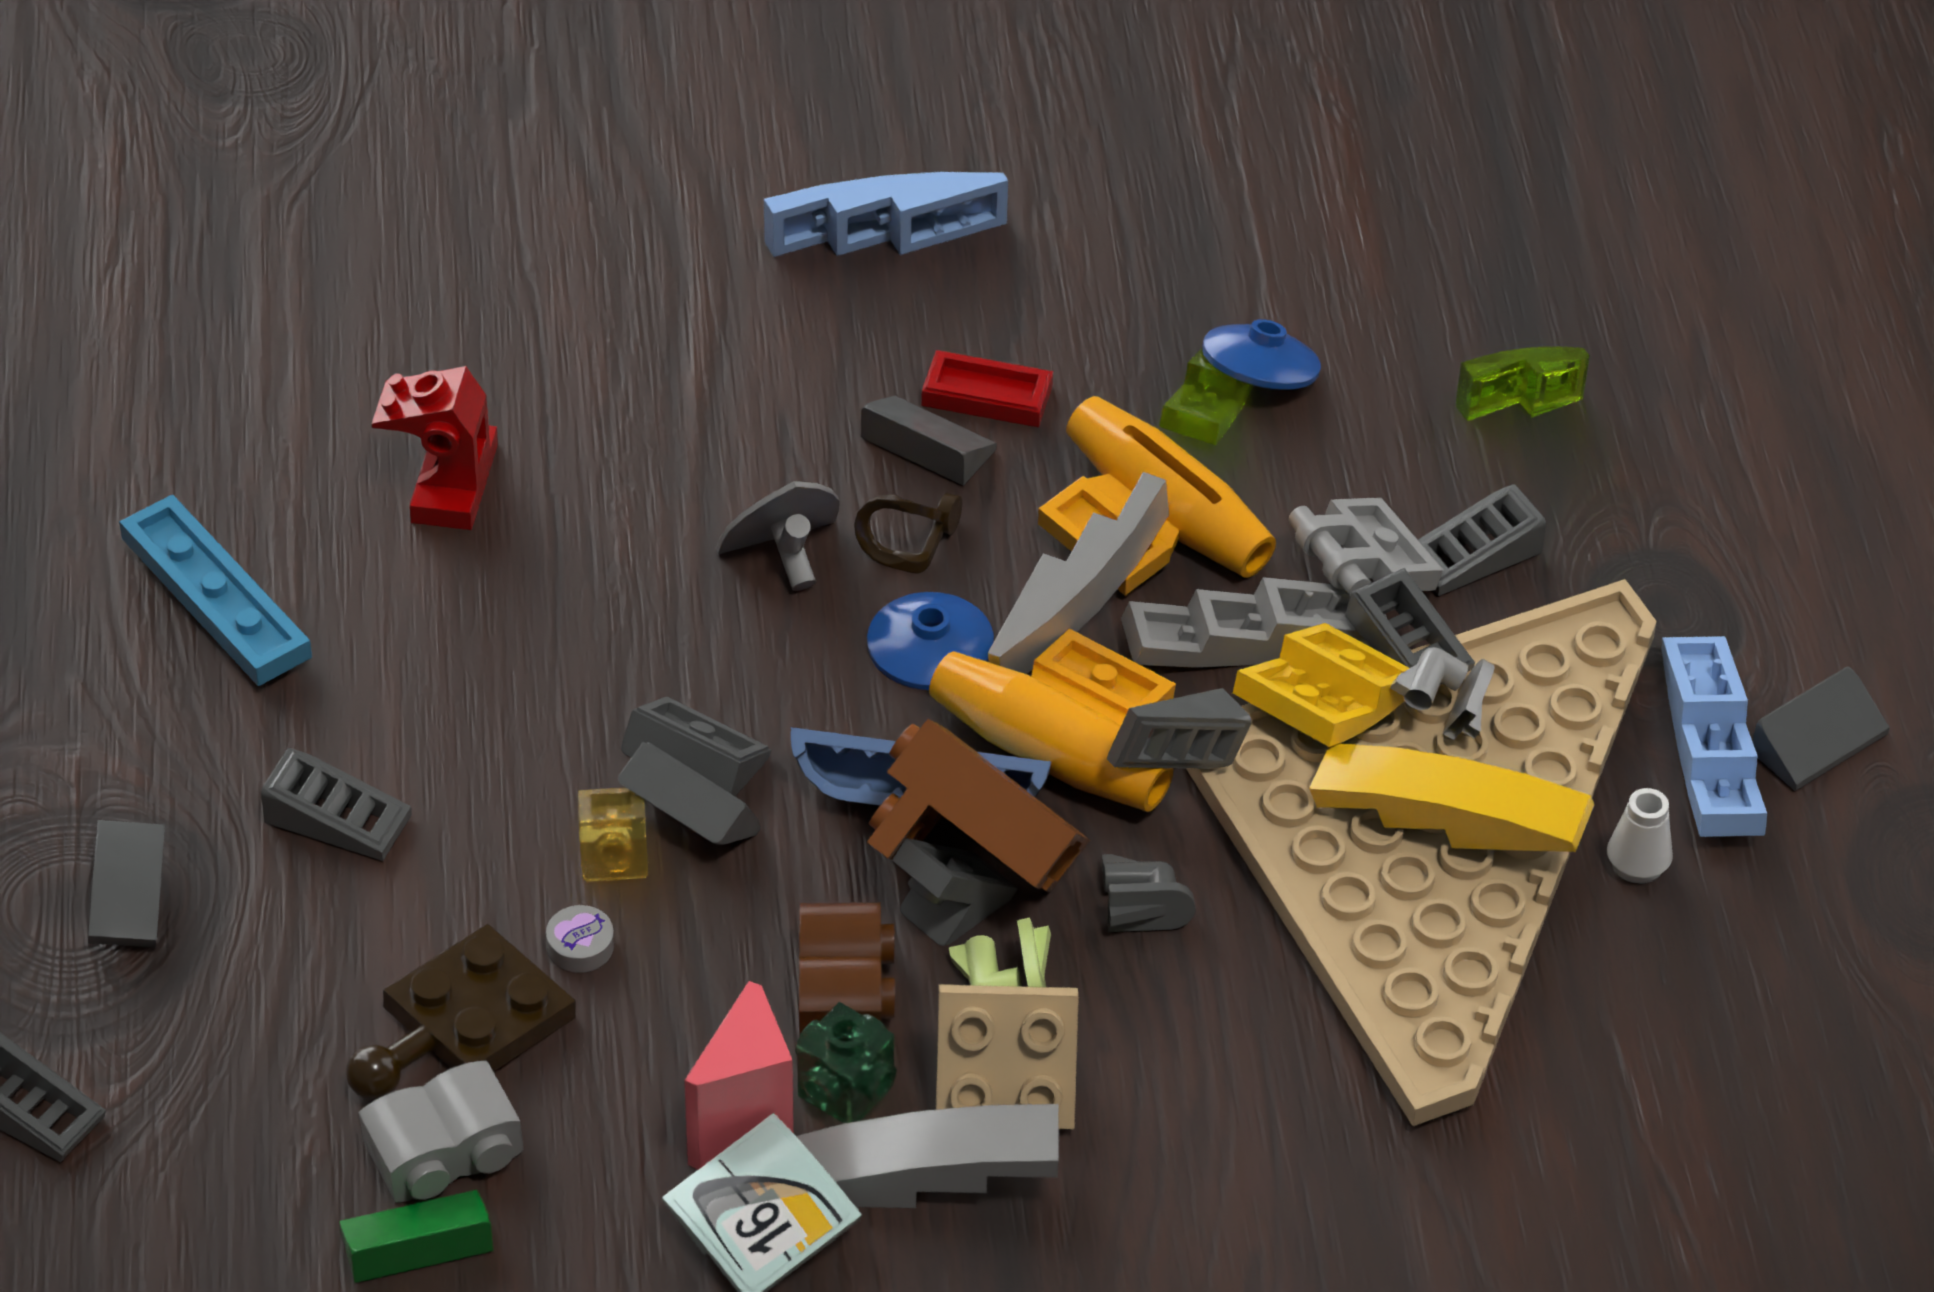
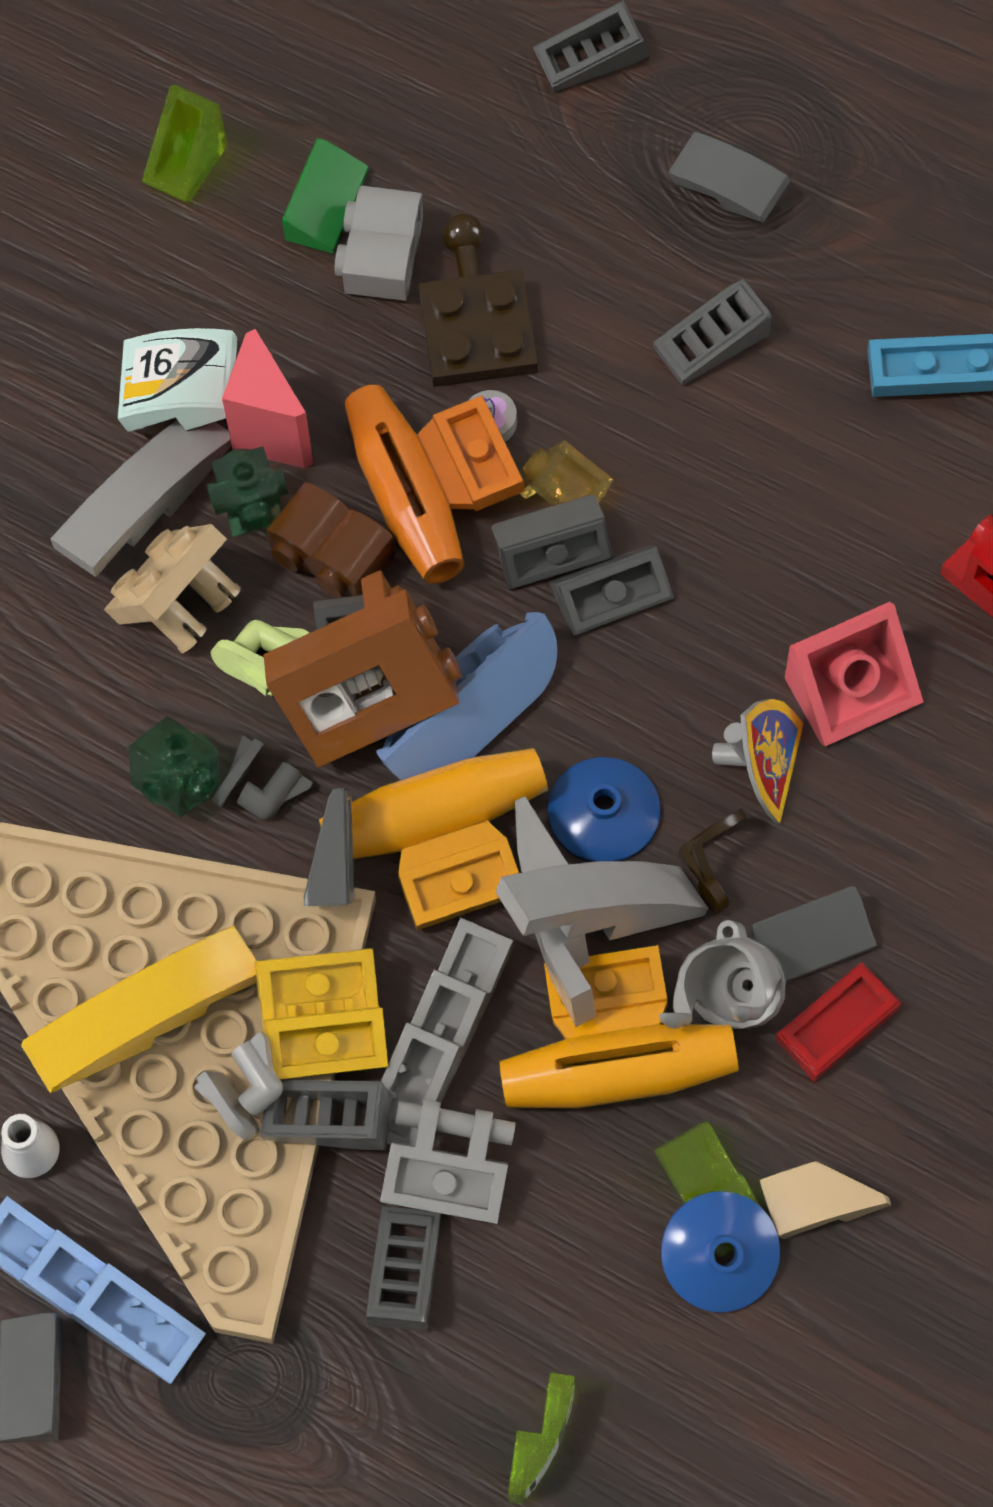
camera: 130 degrees right, 20 degrees up
(640, 523) = (853, 674): none -> coral slope
(700, 935) = (424, 475): none -> orange plate
(1023, 435) = (717, 980): none -> light grey hair
(1050, 520) = (600, 895): none -> light grey slope
(1157, 322) = (816, 1196): none -> tan slope
(1195, 938) = (174, 766): none -> clear green brick

